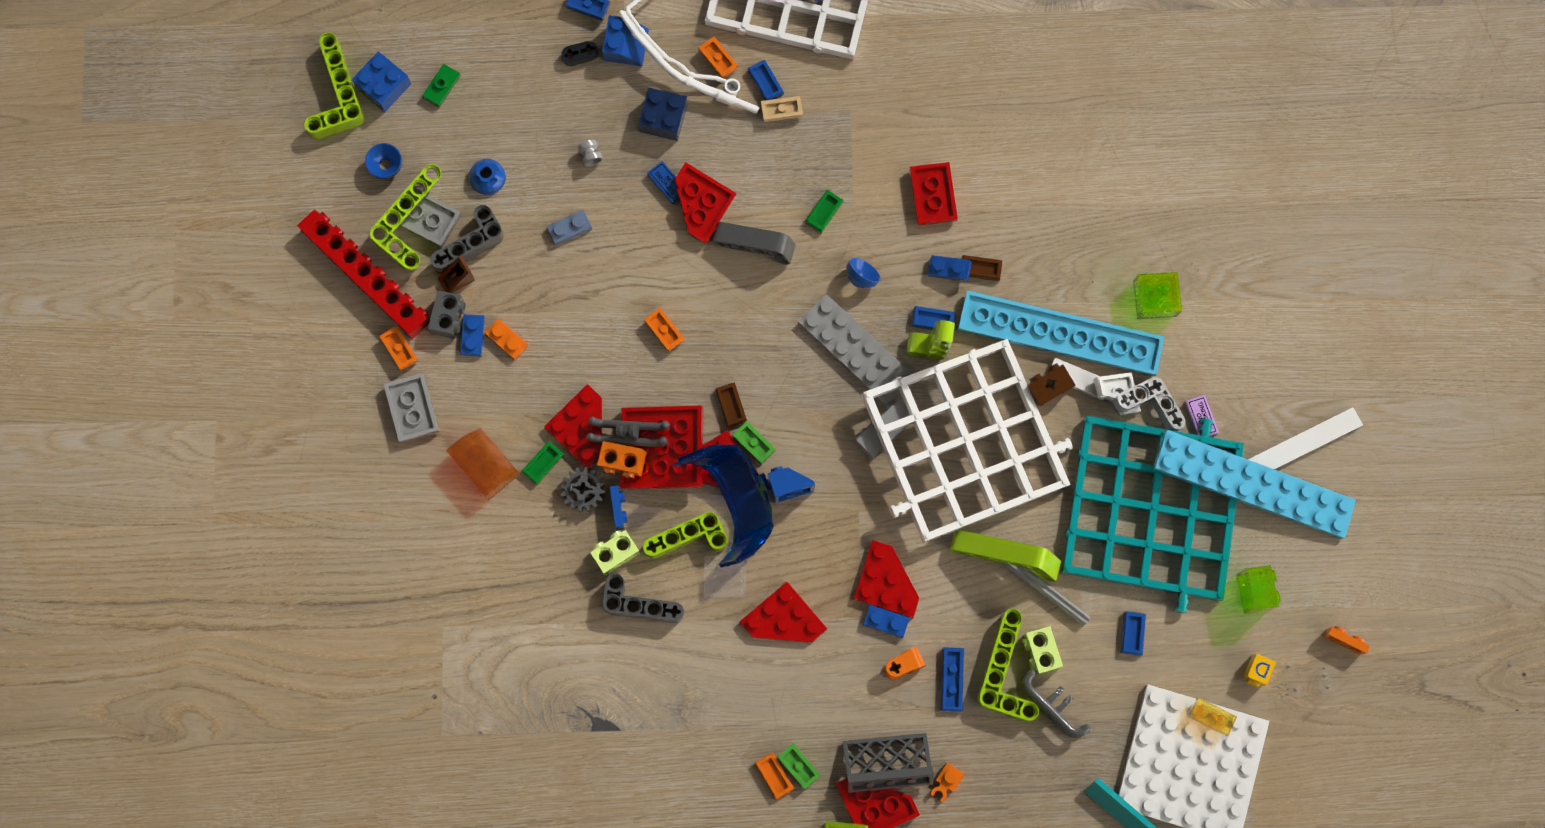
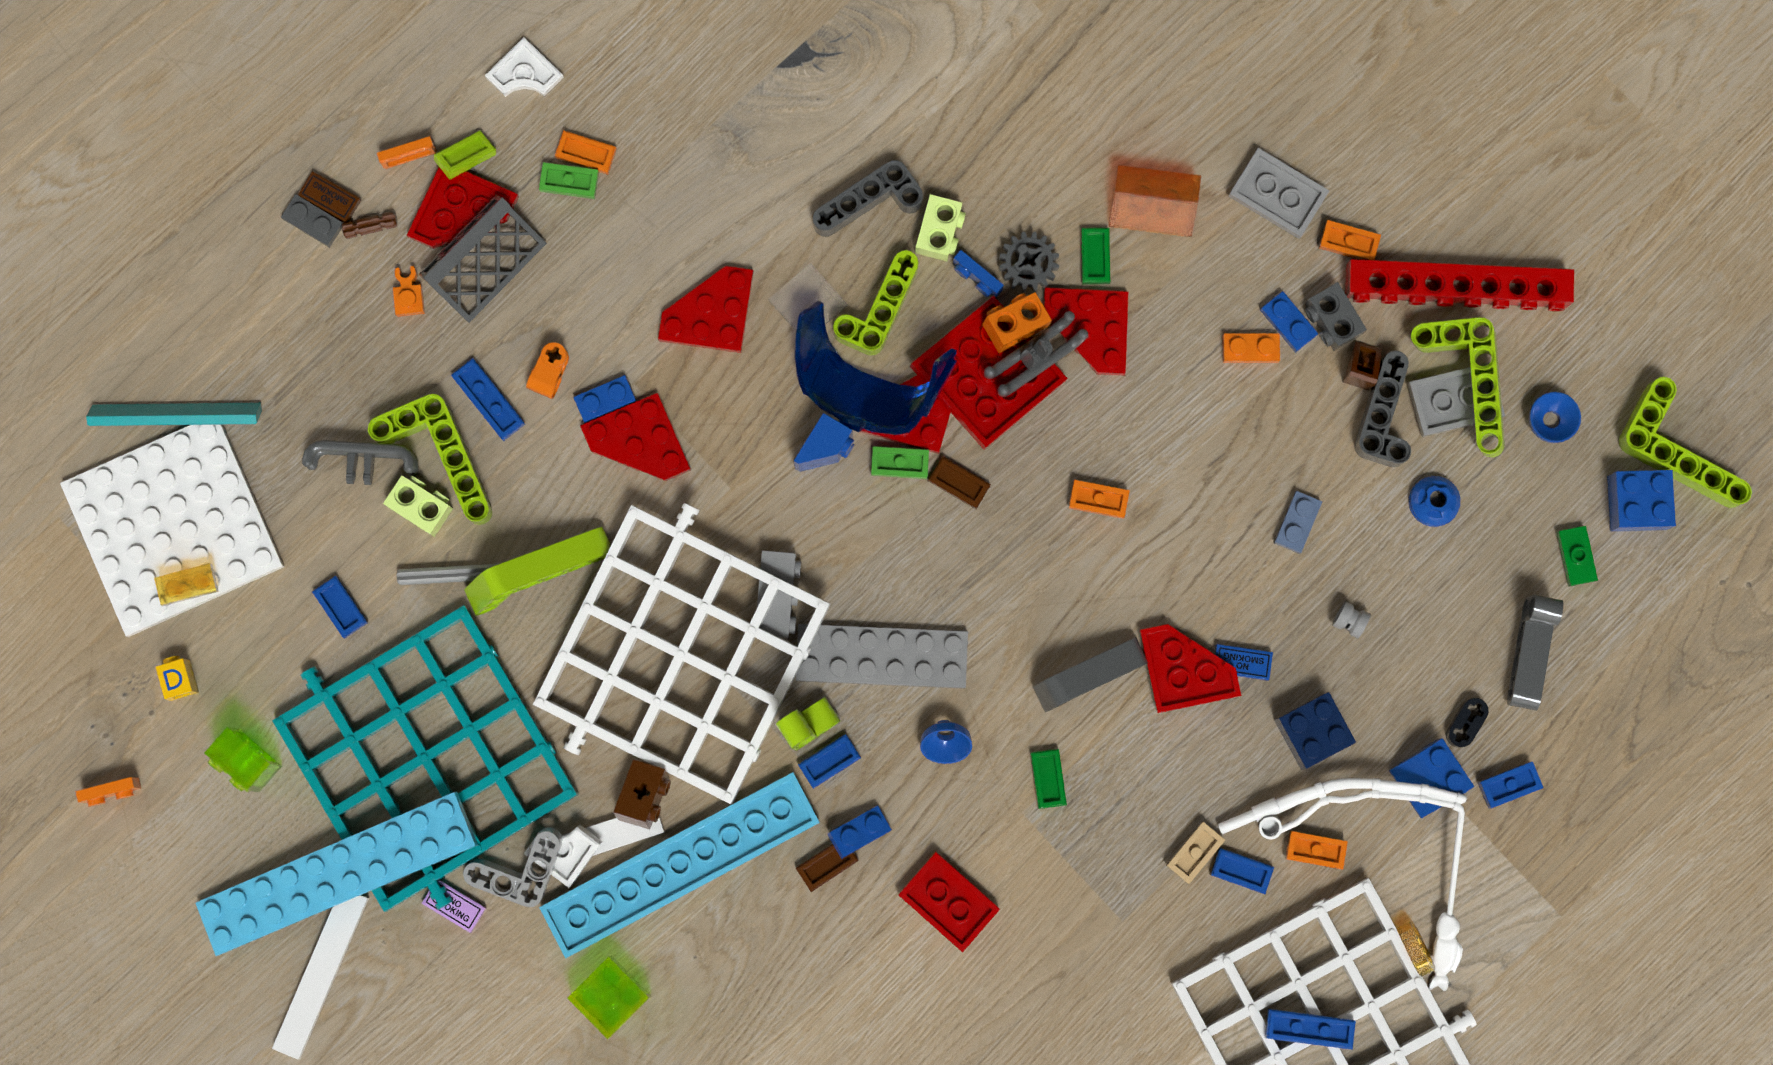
camera: 140 degrees right, 5 degrees up
(512, 57) = (1532, 650): none -> dark grey beam

